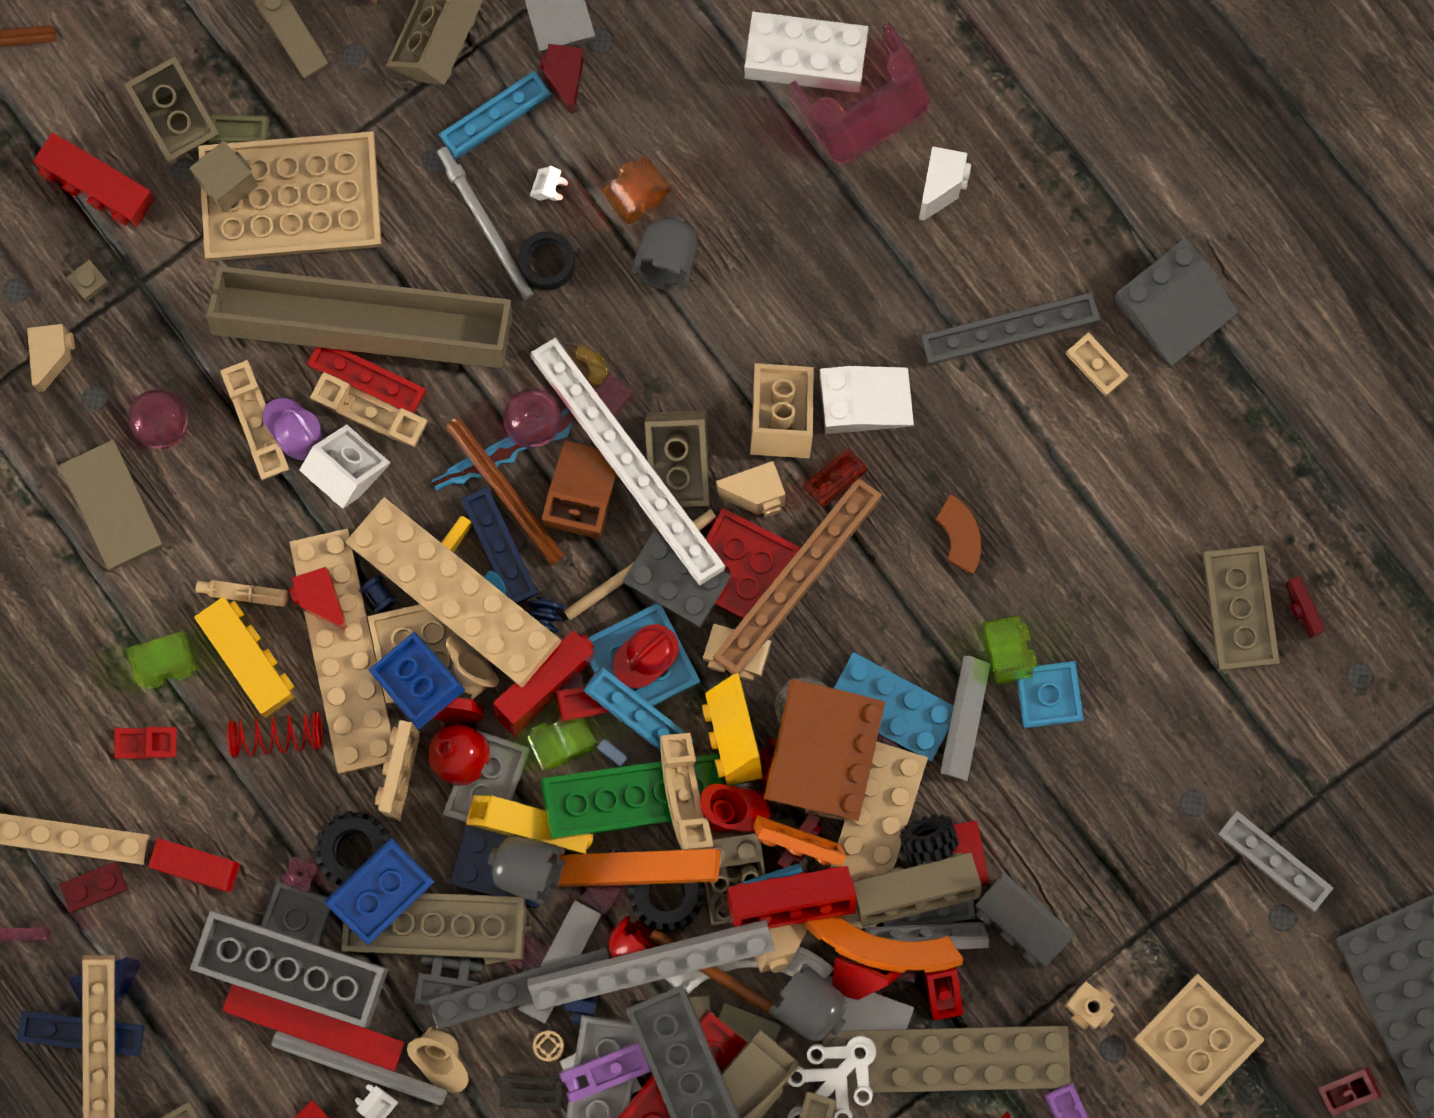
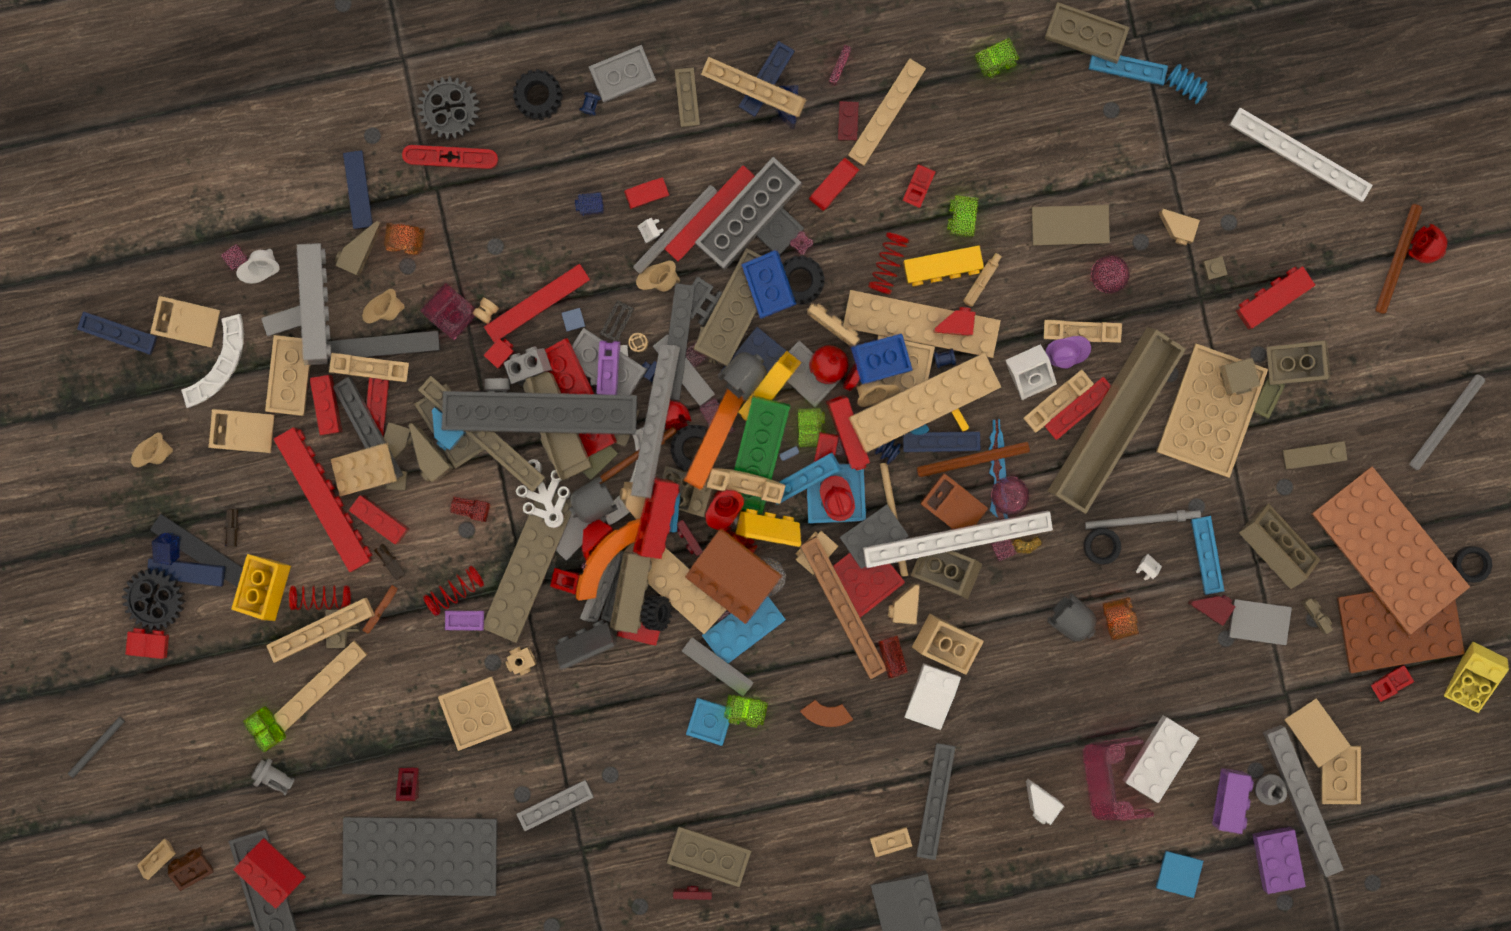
camera: 110 degrees right, 10 degrees up
(799, 842) = (687, 537): orange plate -> none

